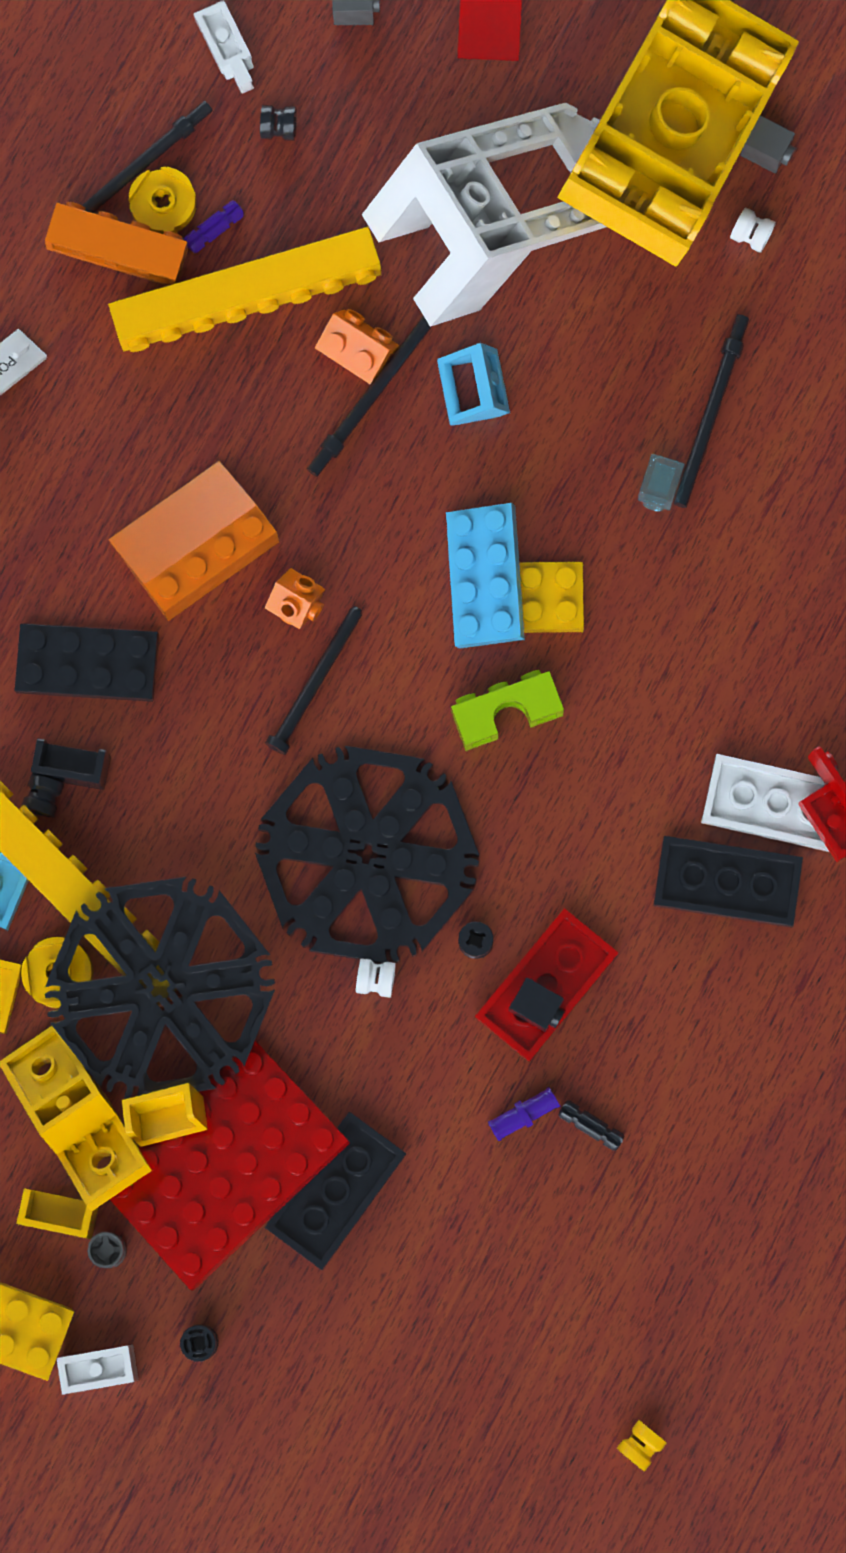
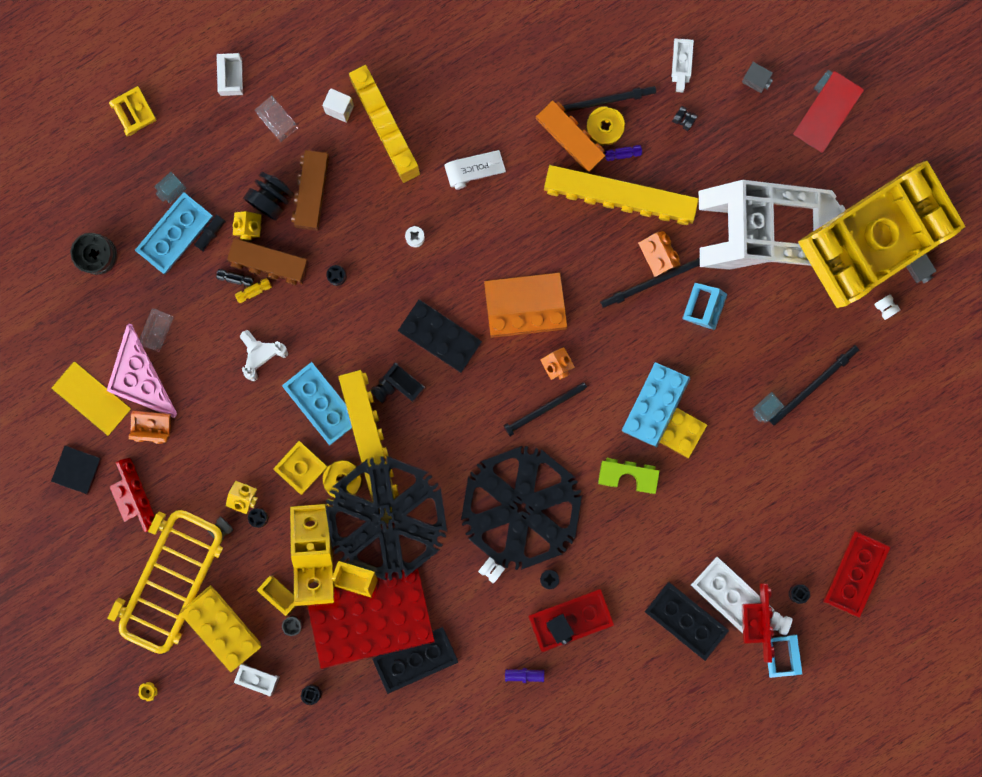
camera: 30 degrees right, 5 degrees up
(591, 1125) = (553, 699): black axle -> none

